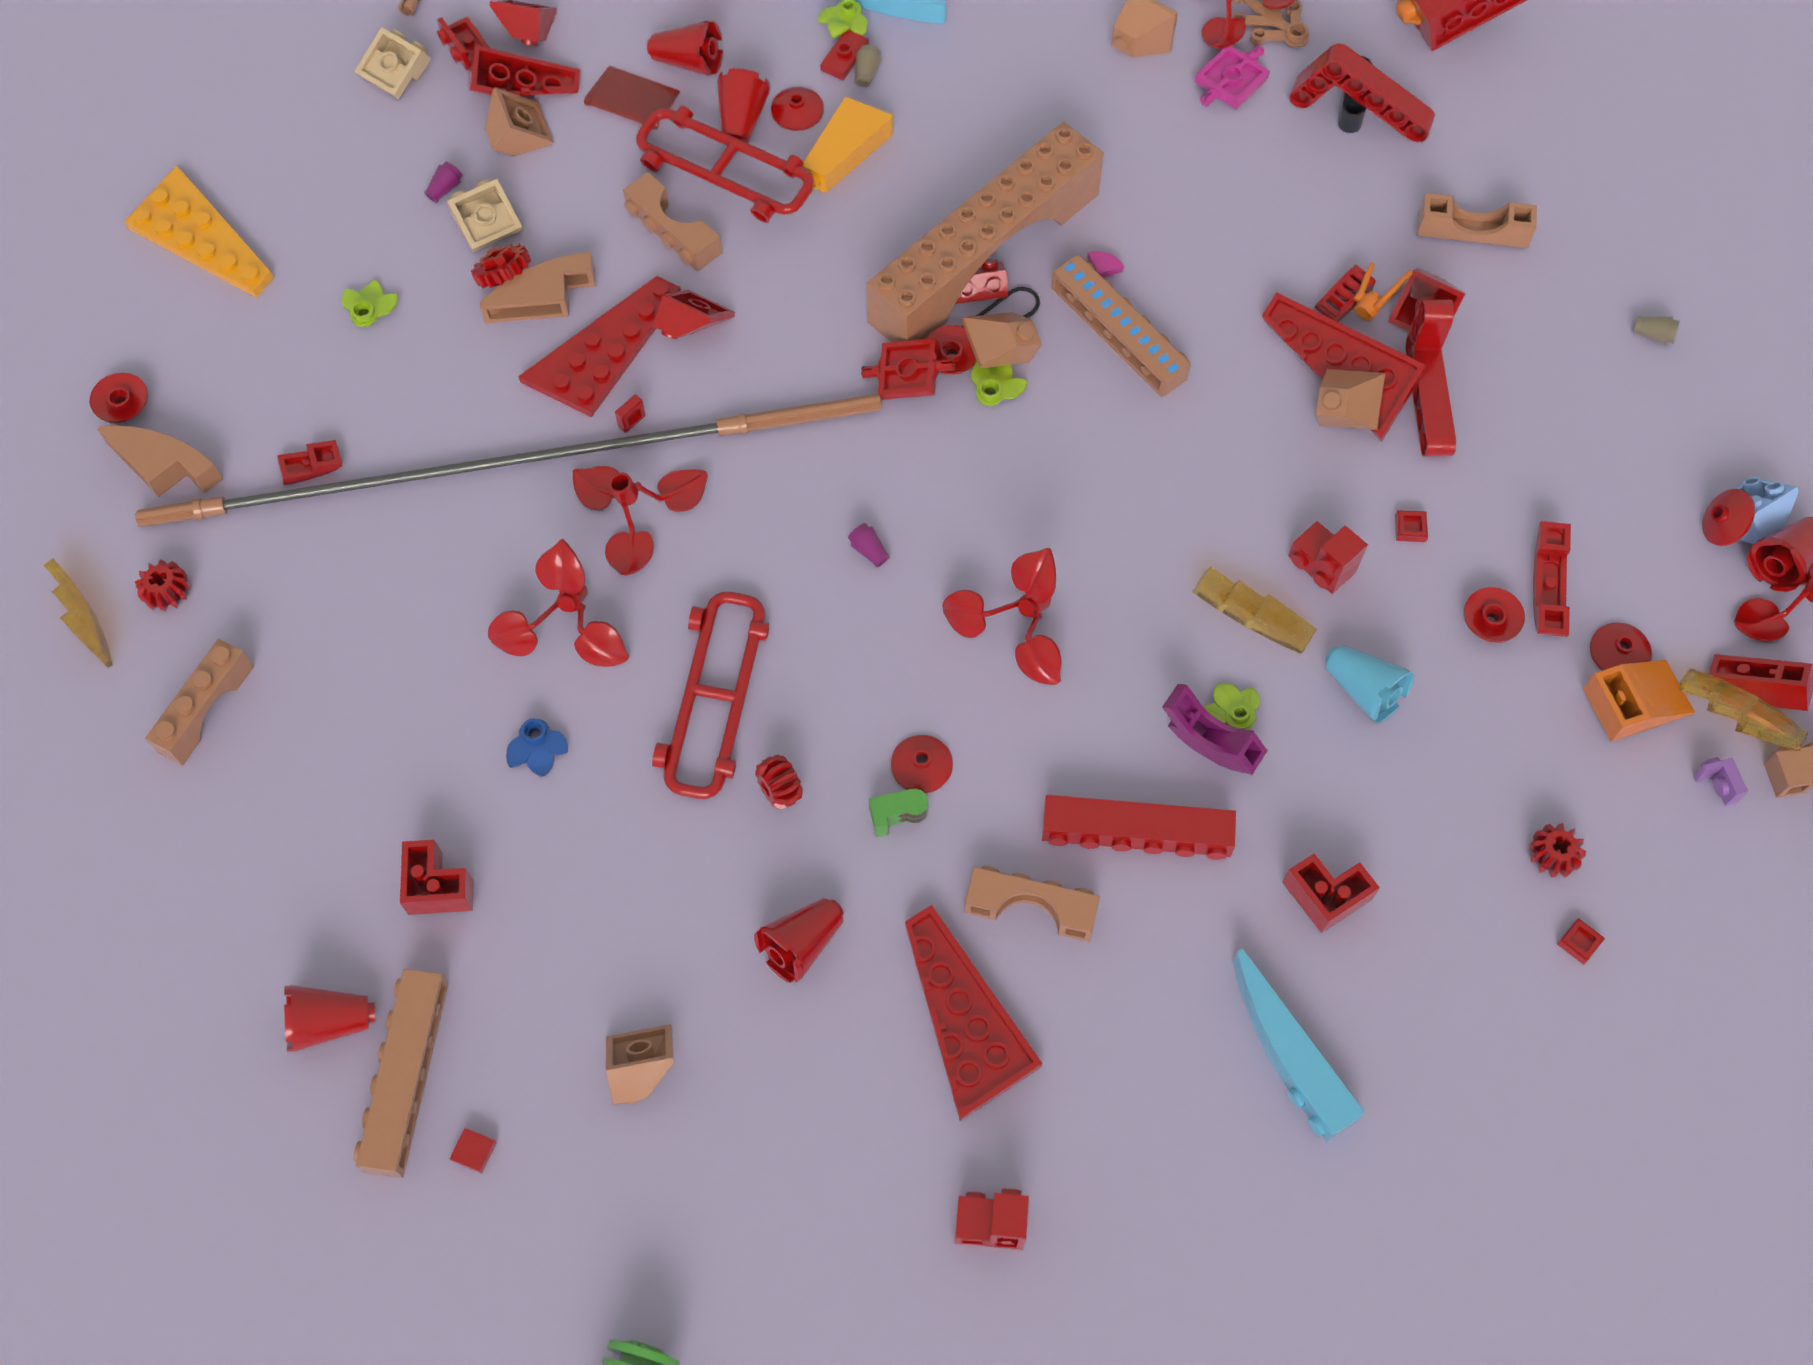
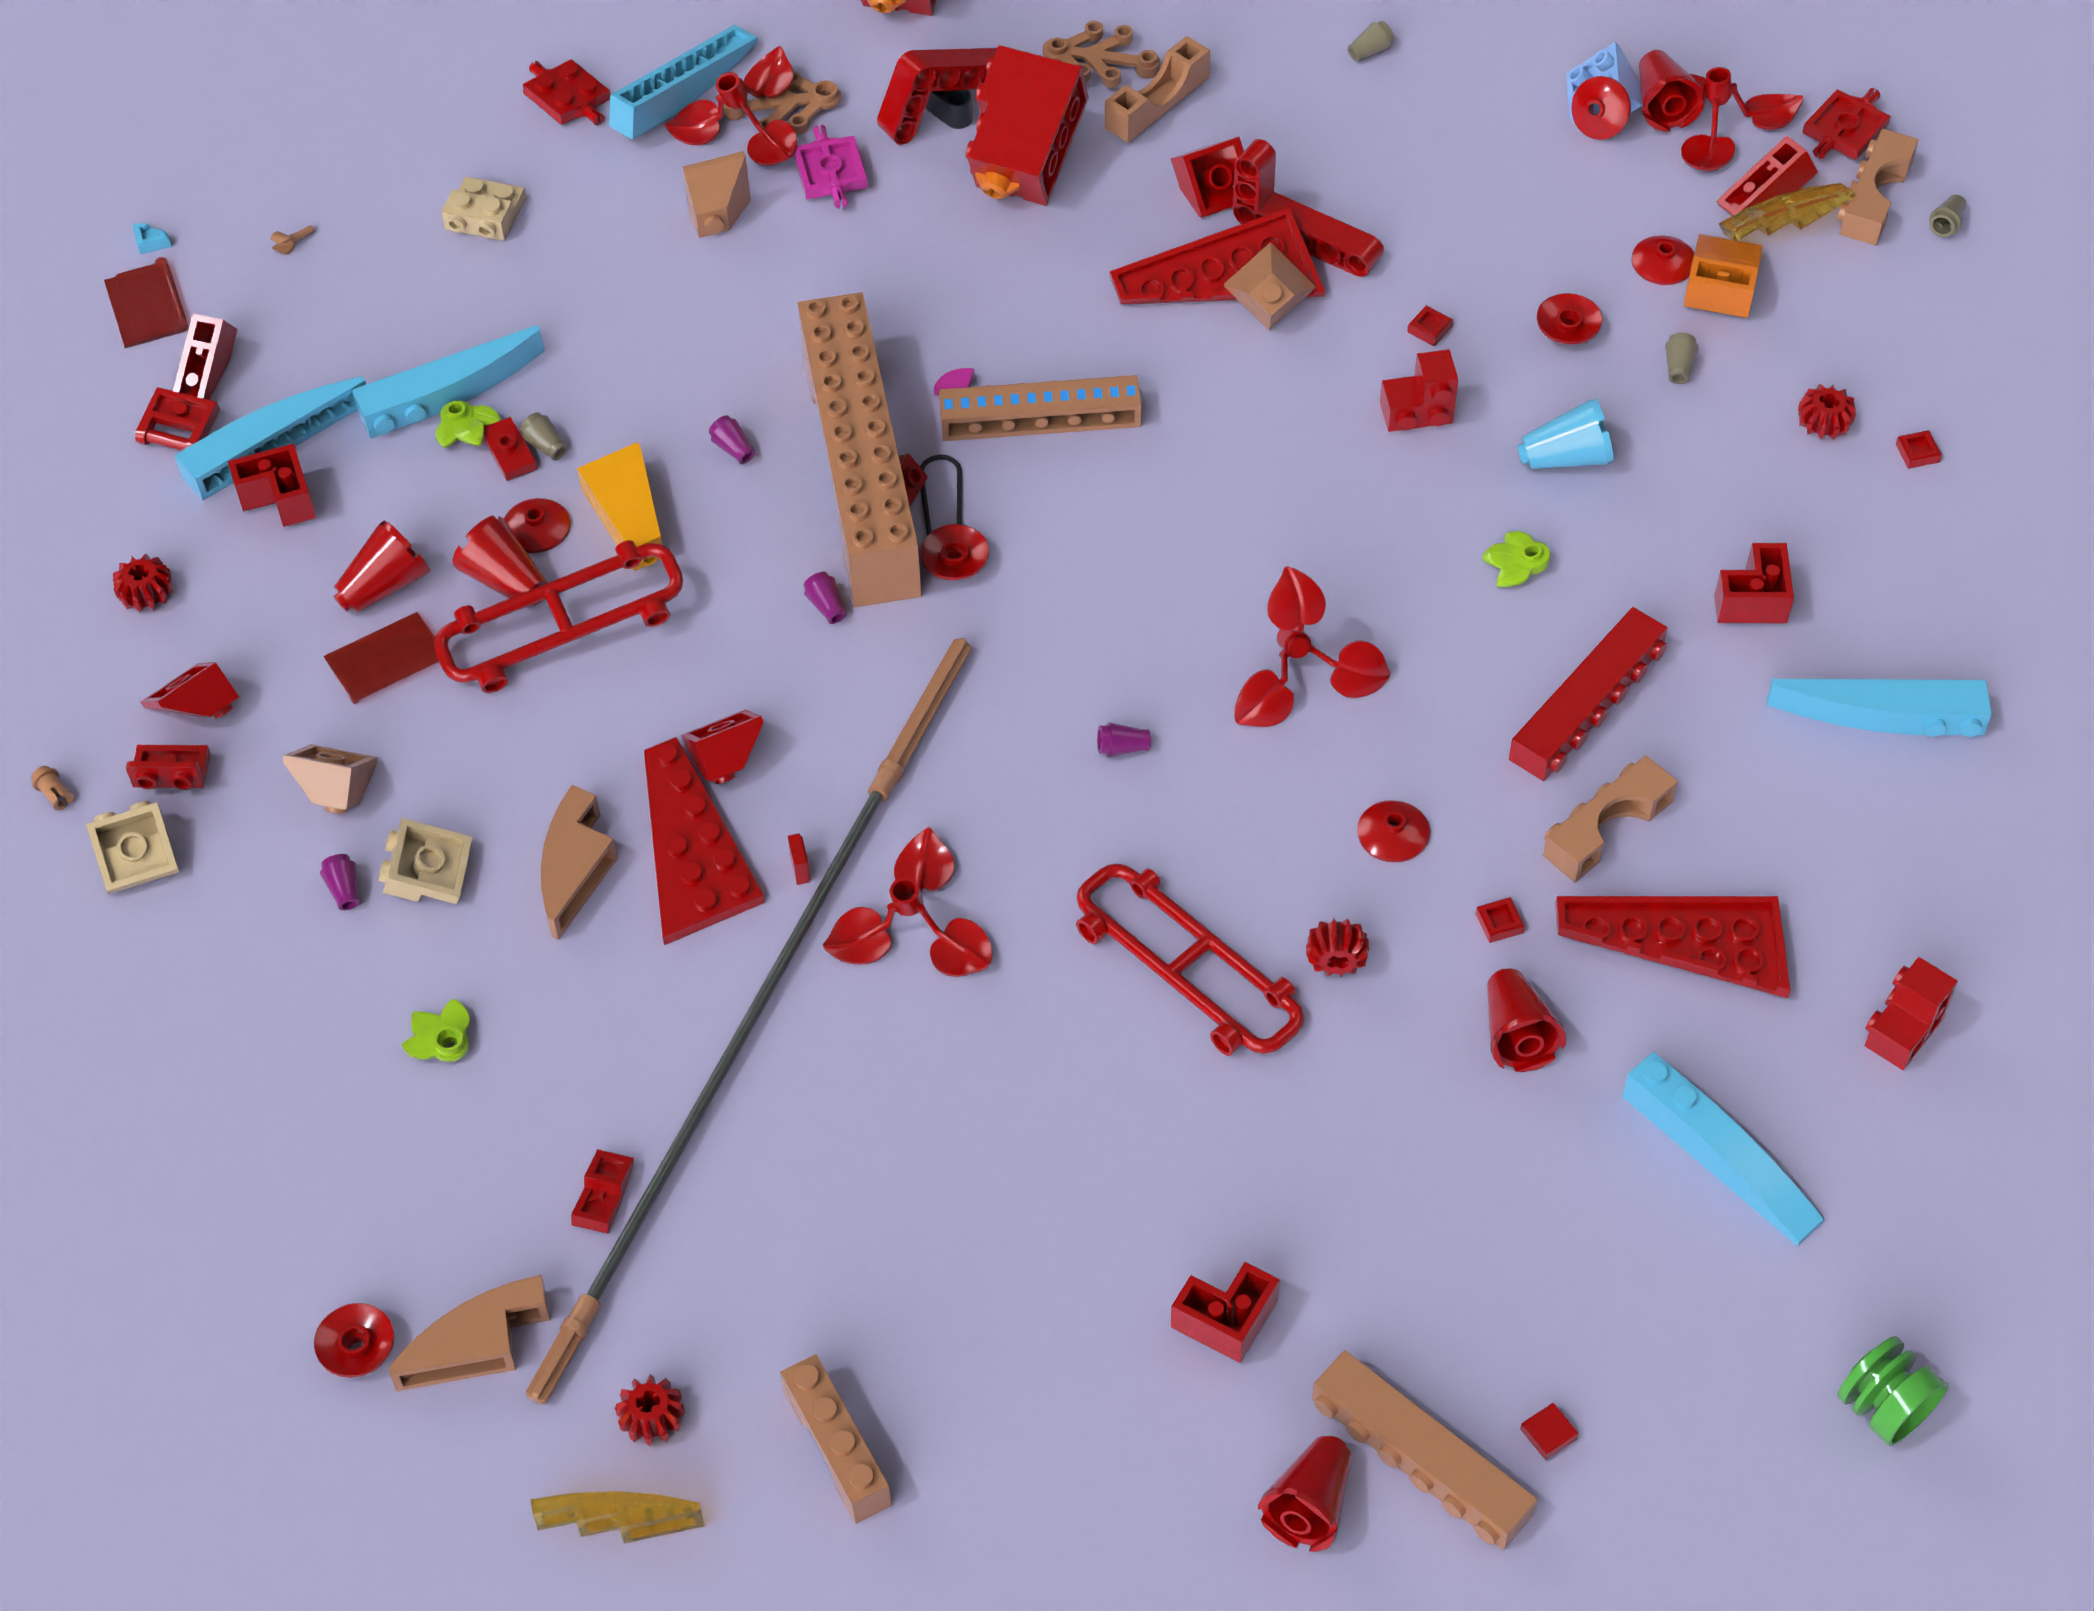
camera: 55 degrees left, 10 degrees down
(190, 227) = (163, 1163): light orange wing -> none
(500, 265) = (512, 877): red gear -> none
(519, 74) = (257, 745): red wedge -> none
(536, 751) = (1136, 1147): blue plate -> none
(561, 570) = (975, 989): red plant -> none
(638, 1062) = (1555, 1227): nougat slope -> none
(692, 241) = (629, 698): nougat arch -> none
(784, 1145) = (1719, 1146): none -> medium azure slope
(855, 300) = (824, 595): none -> magenta cone
(891, 878) = (1500, 920): none -> red tile
(897, 808) = (1434, 865): bright green leg -> none
(908, 368) = (950, 595): red plate -> none
(948, 163) = (730, 437): none -> magenta cone
(998, 381) = (1015, 540): lime plate -> none
(1001, 339) = (979, 501): nougat slope -> none
(1208, 736) = (1542, 587): magenta arch -> none
(1253, 611) = (1436, 483): clear yellow slope -> none
(1352, 280) = (1148, 209): red slope -> none
(1354, 158) = (1025, 124): none -> red piece
(1371, 303) = (1178, 212): orange plant -> none
(1466, 143) = (1065, 50): none -> nougat plant
(1525, 713) = (1680, 355): none -> dark tan cone
(1550, 579) = (1561, 264): red slope -> none
(1726, 778) = (1841, 262): medium lavender bracket -> none

